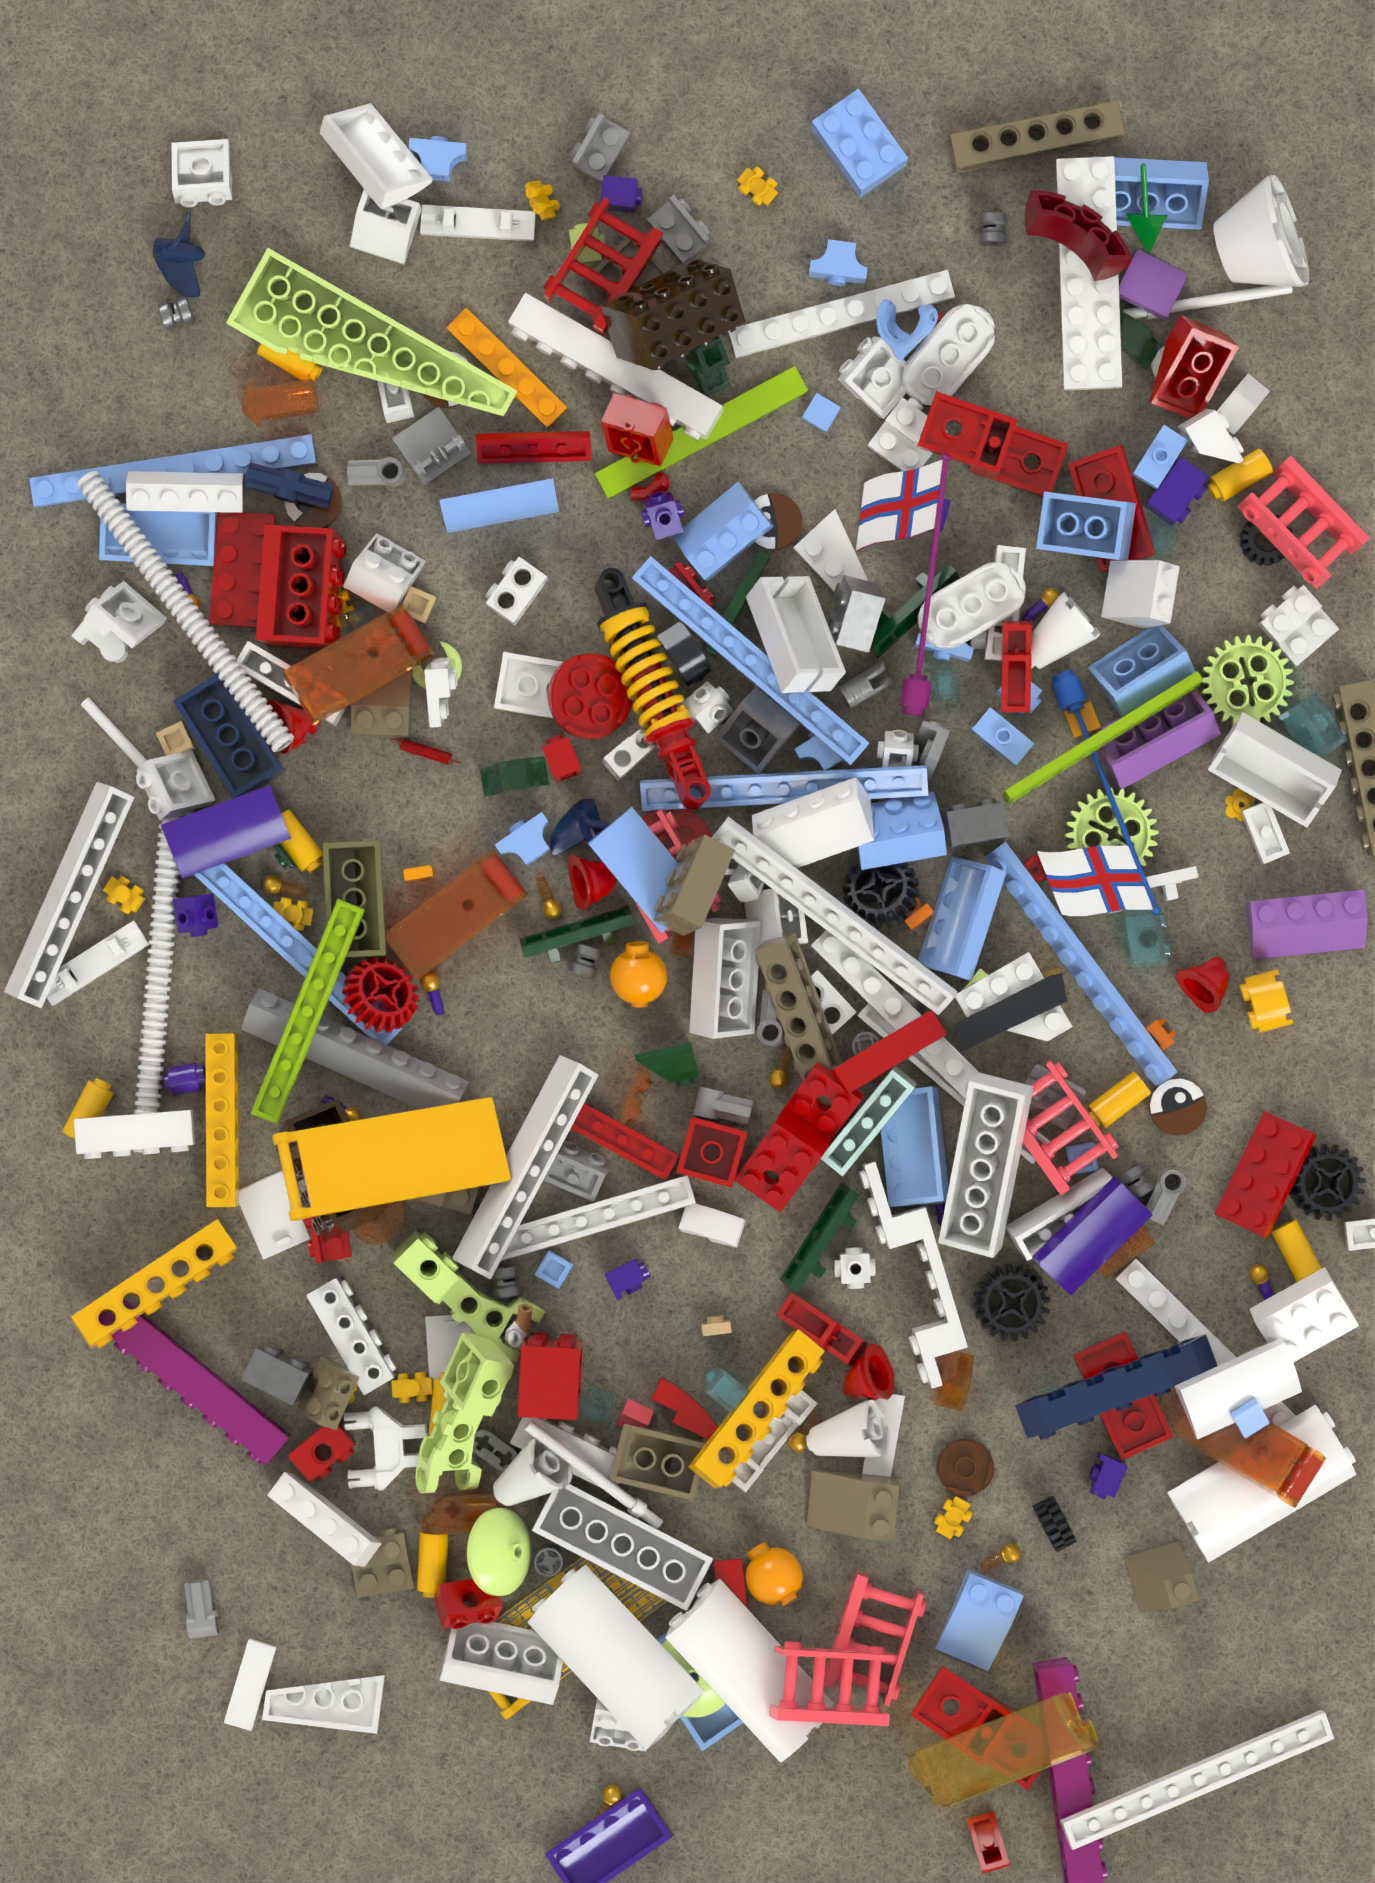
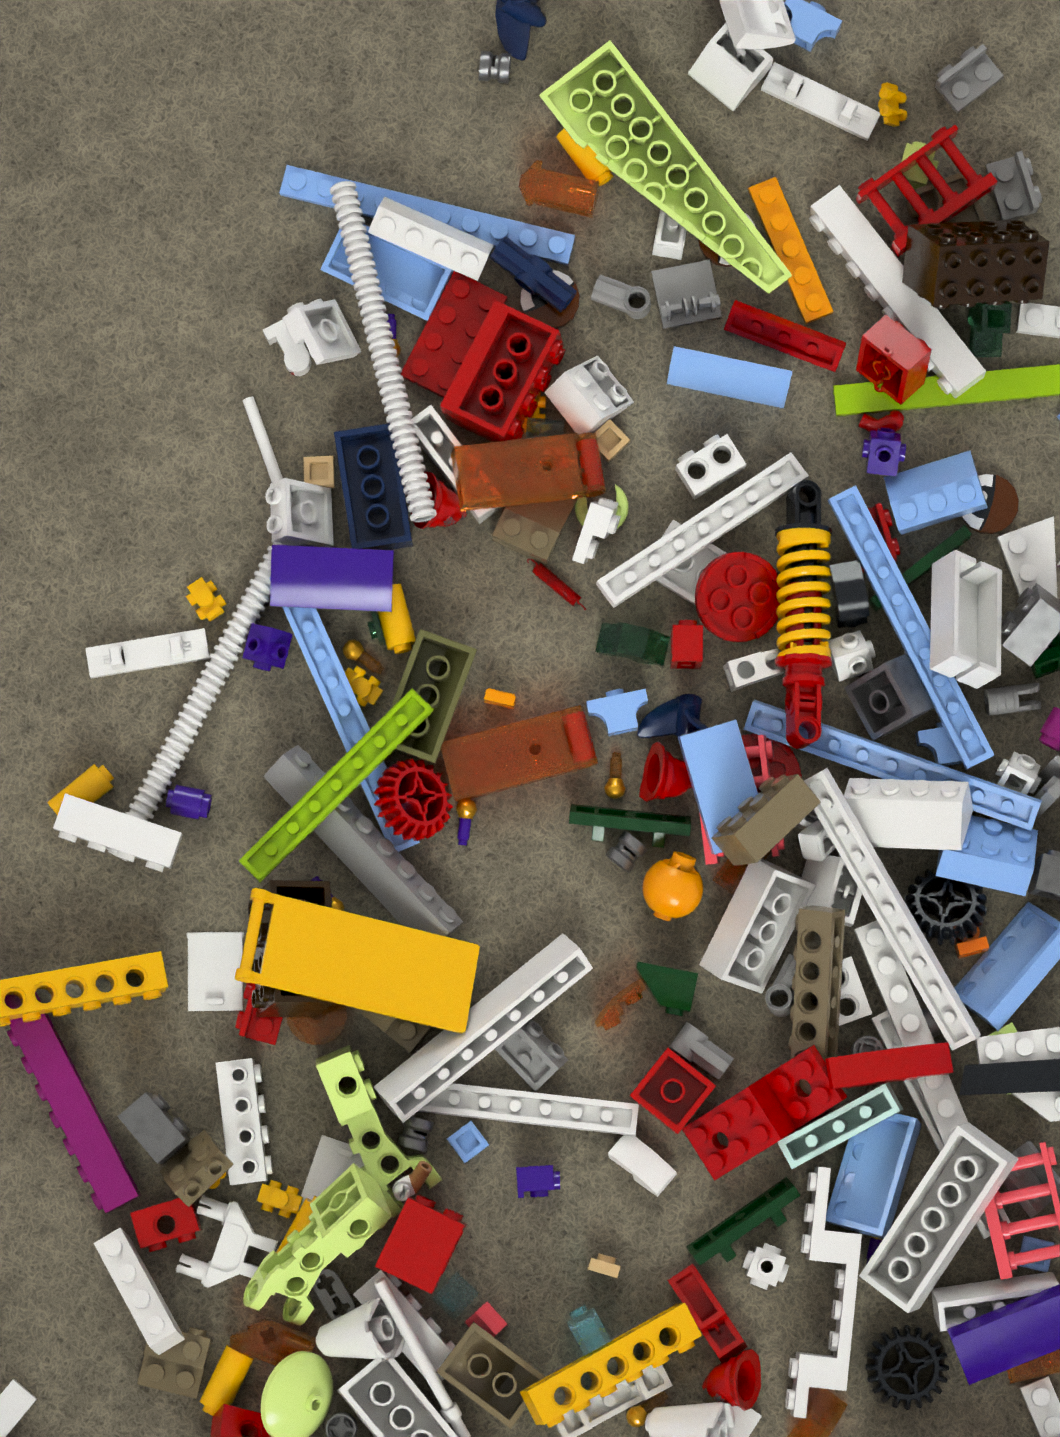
camera: 30 degrees right, 5 degrees down
(69, 894) = (153, 576): white brick -> none
(222, 1120) = (207, 857): yellow brick -> none
(532, 651) = (701, 530): none -> white plate
(622, 193) = (972, 130): dark purple brick -> none
(625, 1141) = (590, 1045): red plate -> none
(689, 1411) = (541, 1340): red slope -> none
(778, 1078) = (768, 1047): piece -> none

